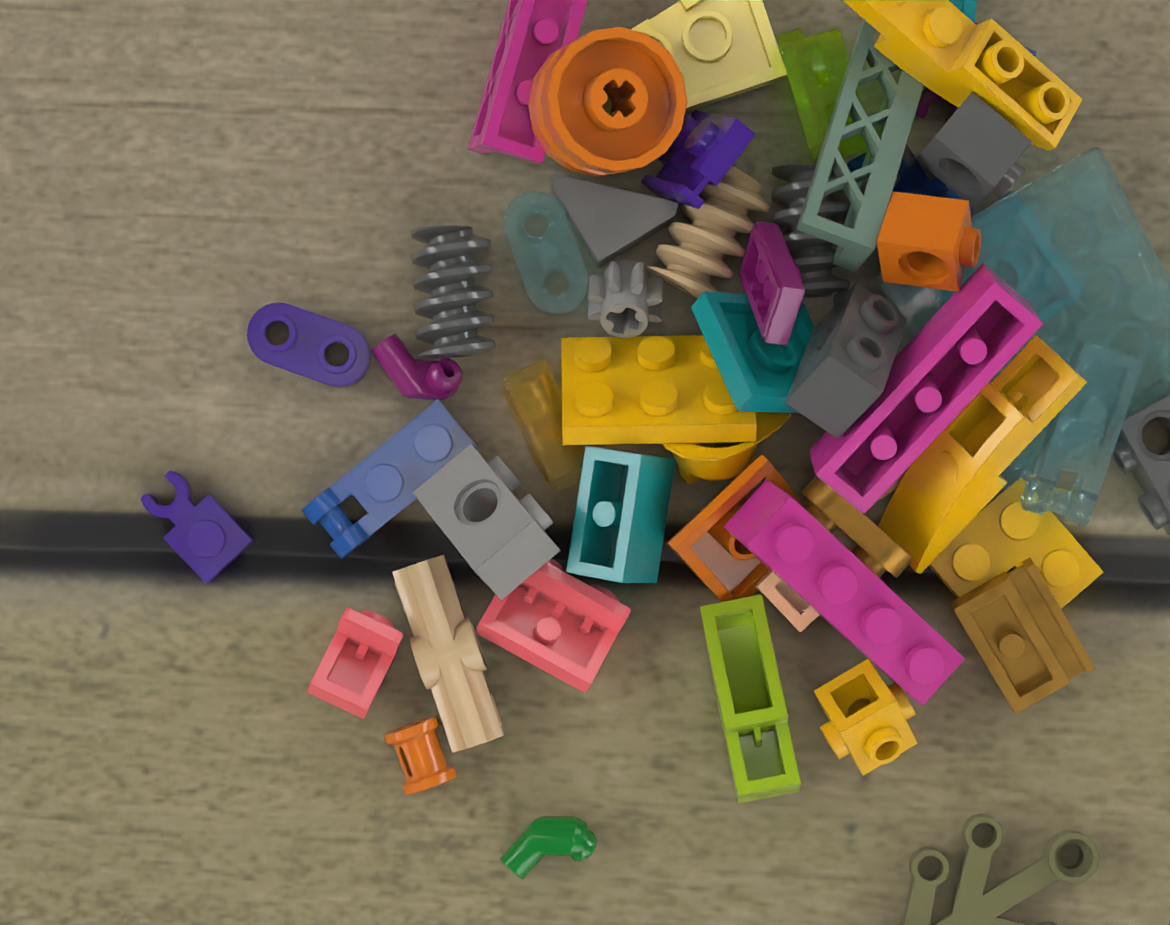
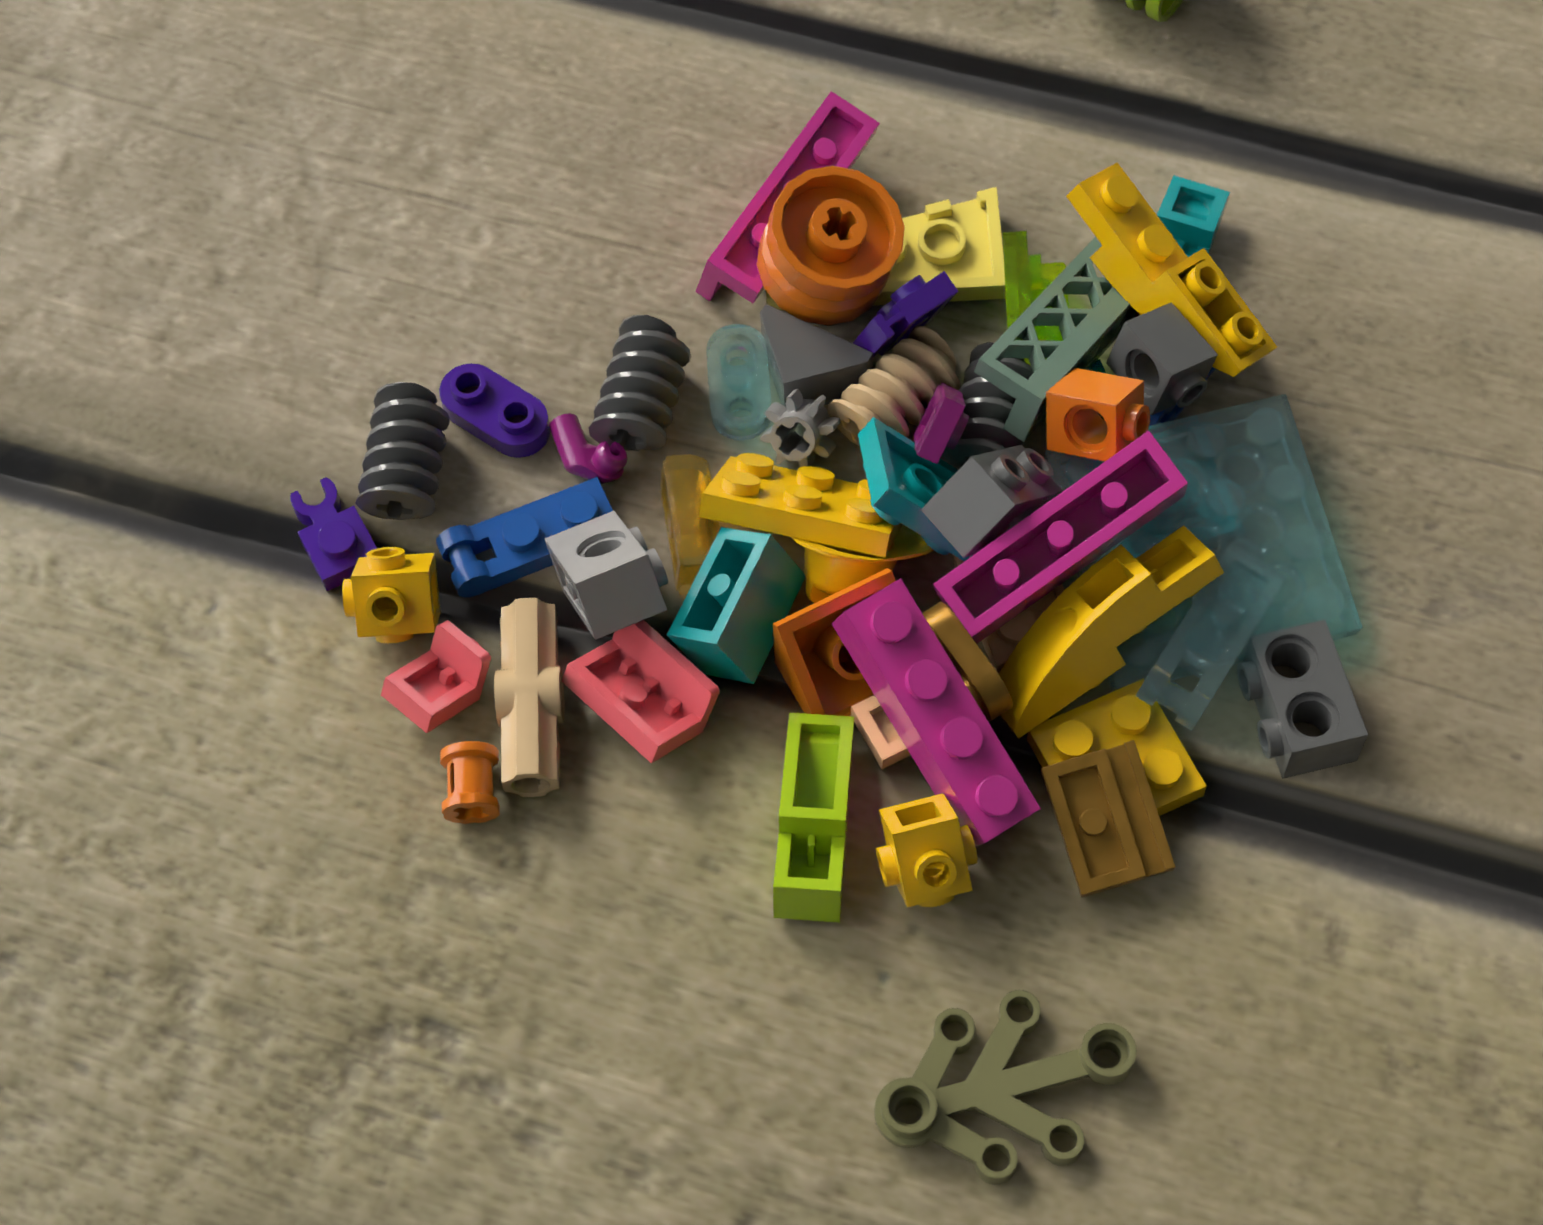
camera: 20 degrees right, 25 degrees down
(240, 431) = (402, 453): none -> dark grey piece
(285, 589) = (393, 595): none -> yellow brick
(549, 837) = (569, 895): green arm -> none

